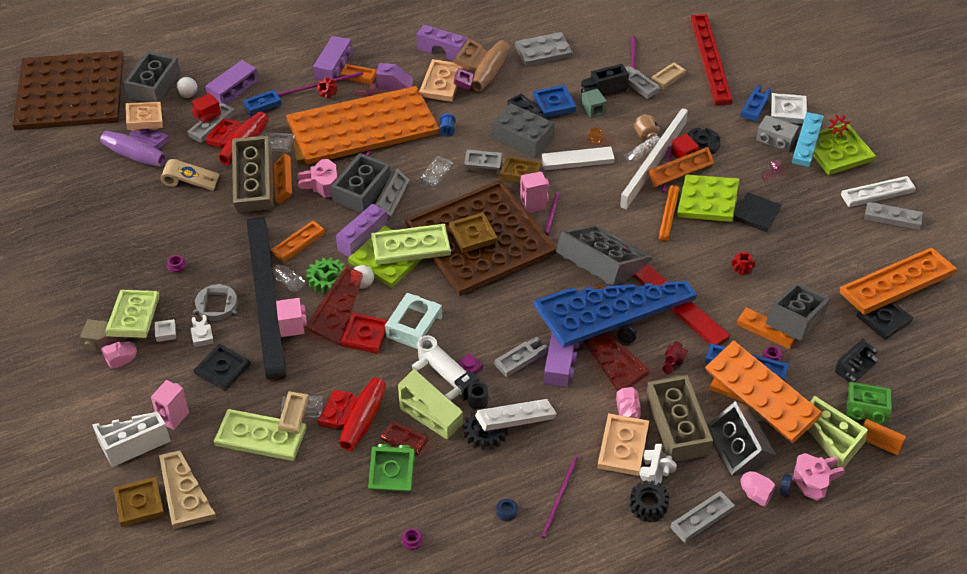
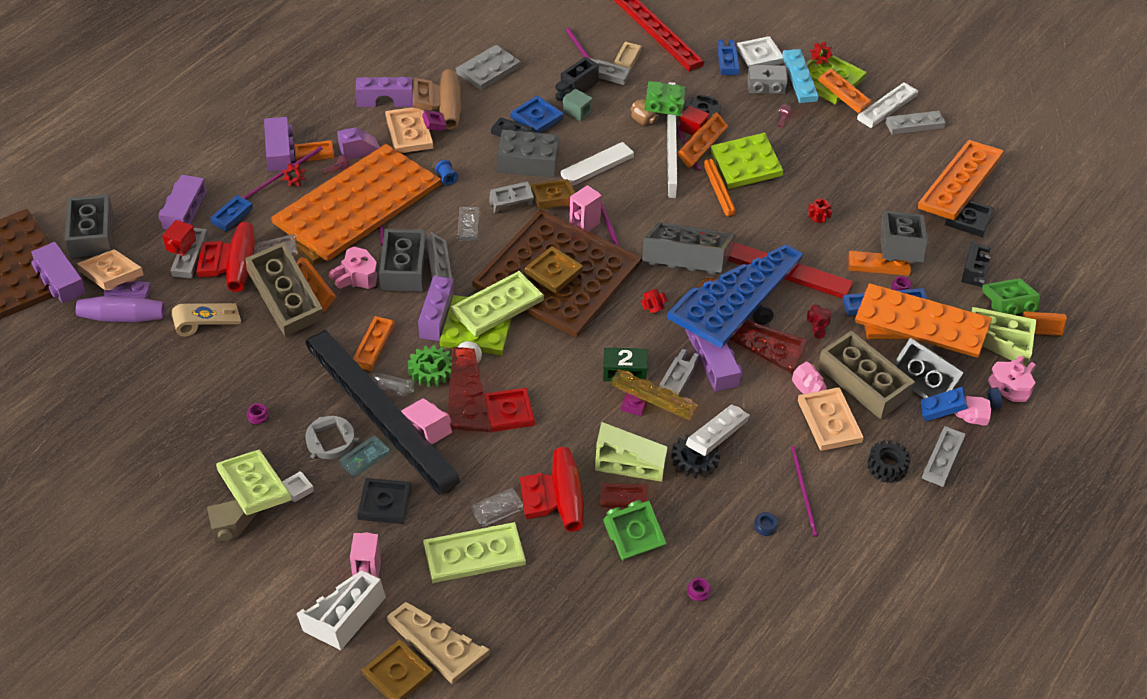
camera: 30 degrees left, 0 degrees up
(104, 105) = (57, 272): none -> medium lavender brick
(119, 353) = (262, 531): bright pink rock -> none
(187, 87) = (134, 224): white piece -> none
(201, 332) = (335, 475): white plate -> none
(231, 326) = (363, 456): none -> clear light blue tile
(293, 412) = (498, 515): tan tile -> none
(408, 335) = (552, 394): light aqua panel -> none
(465, 383) = (645, 420): white piece -> none
(480, 332) = (624, 359): none -> dark green brick
(485, 365) = (658, 396): none -> clear yellow plate
(540, 288) = (653, 300): none -> red gear
(595, 135) = (599, 135): clear orange plate -> none
(638, 151) = (653, 134): clear plate -> none
(660, 465) = (867, 419): white hips -> none
(666, 120) = (665, 98): none -> bright green plate
(733, 471) = (944, 404): none -> blue plate
(757, 212) = (797, 159): black tile -> none
(840, 165) = (844, 90): none -> orange tile

